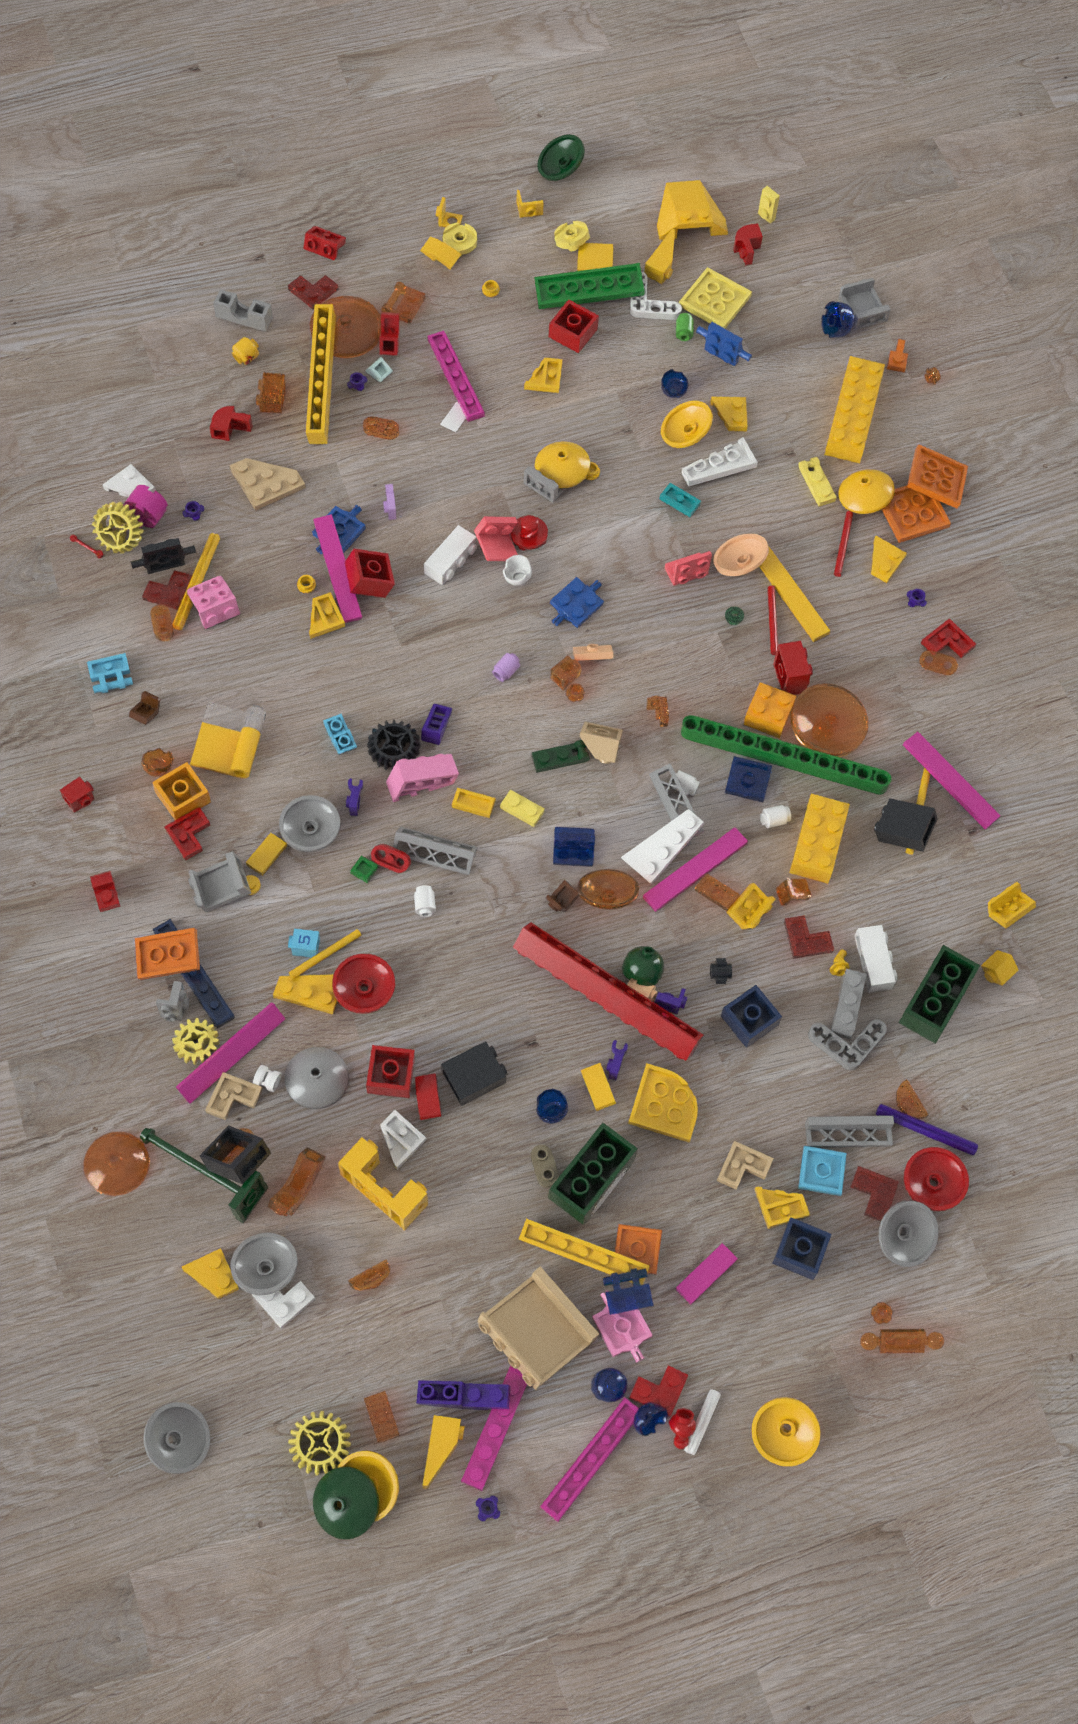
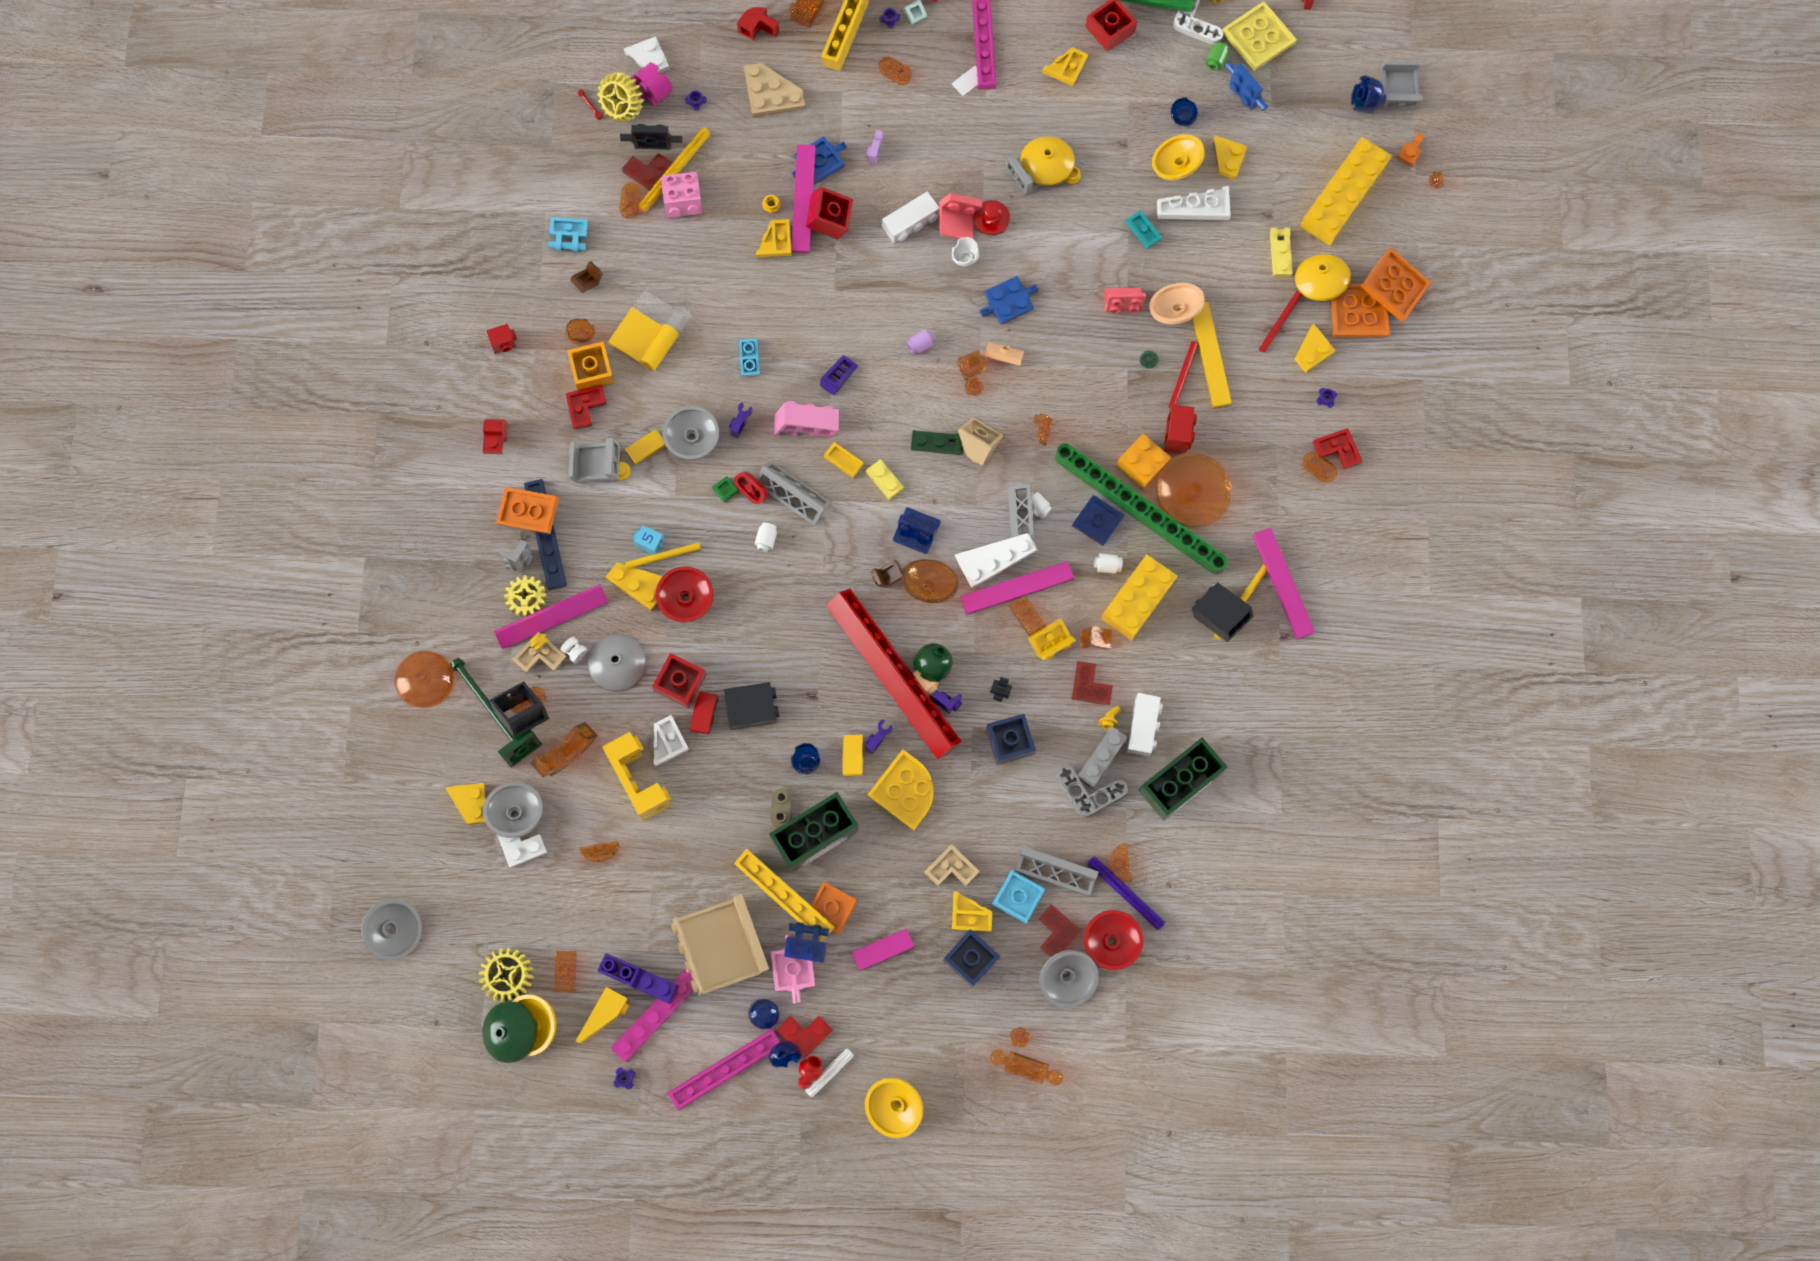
camera: 20 degrees right, 10 degrees up
(227, 1080) = (538, 640): none -> yellow plate
(395, 735) = (799, 381): black gear -> none
(999, 967) = (1251, 772): yellow brick -> none
(1010, 905) = (1287, 718): yellow bracket -> none

